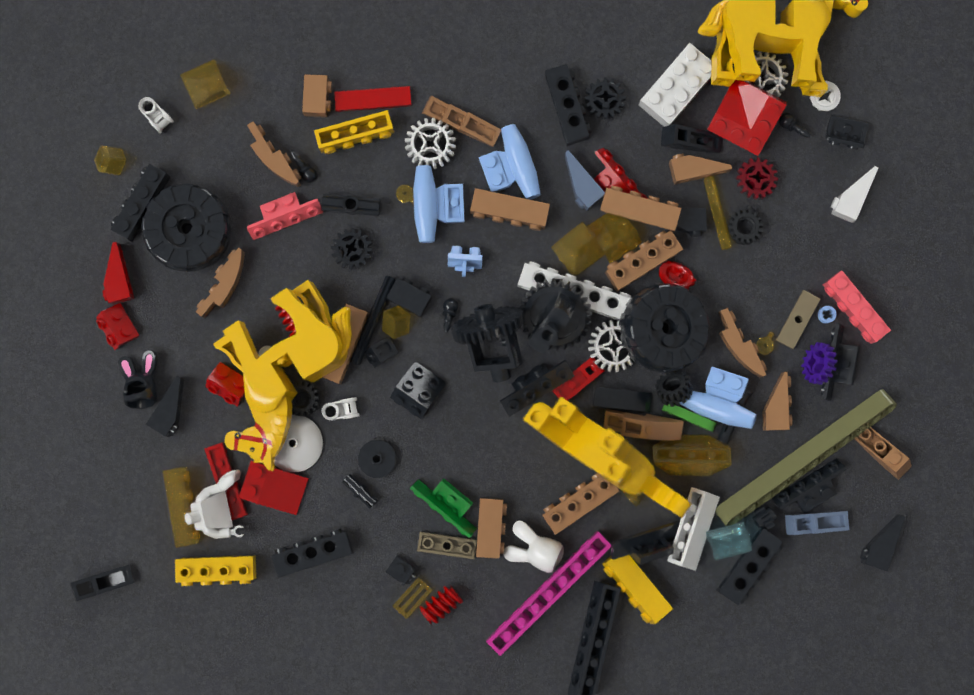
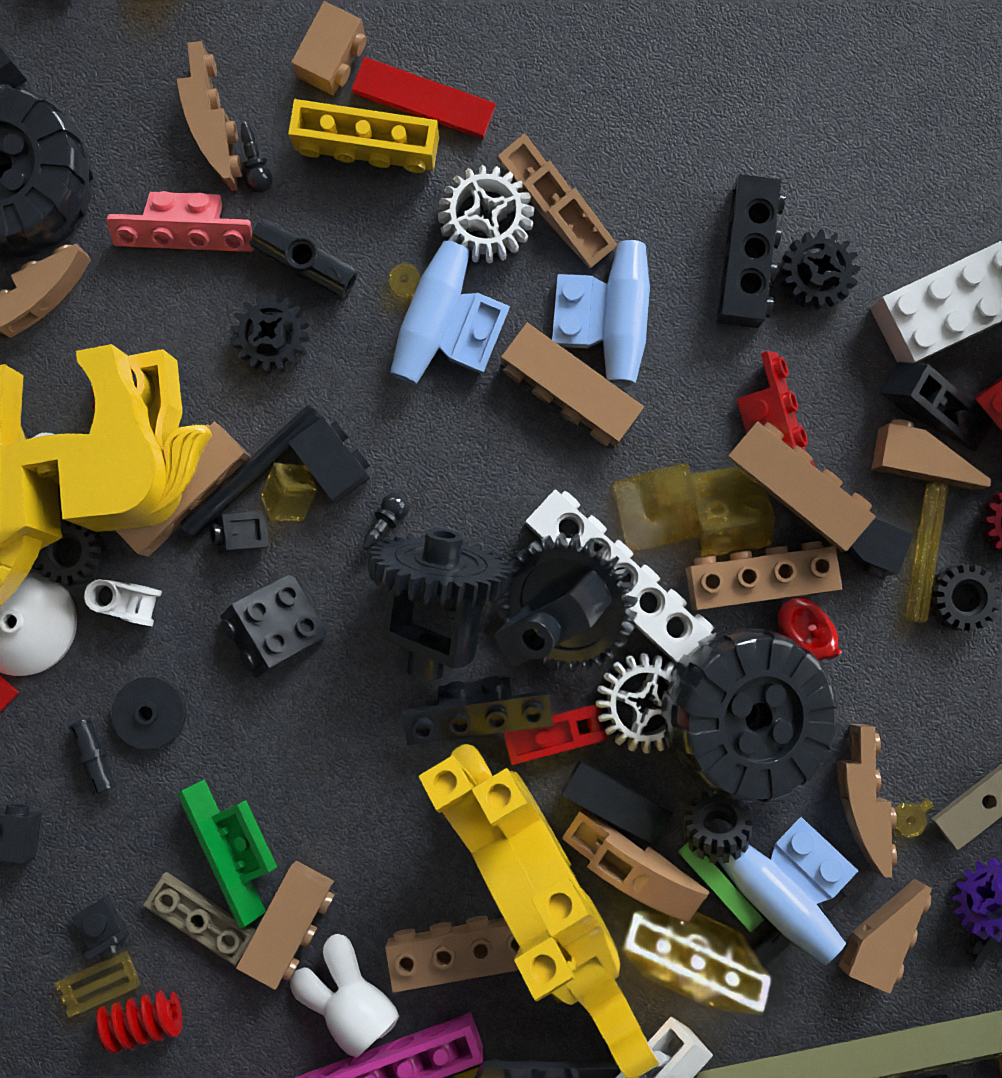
camera: 20 degrees right, 0 degrees up
(465, 262) = (452, 442): light blue hips -> none
(584, 186) = (717, 405): sand blue slope -> none

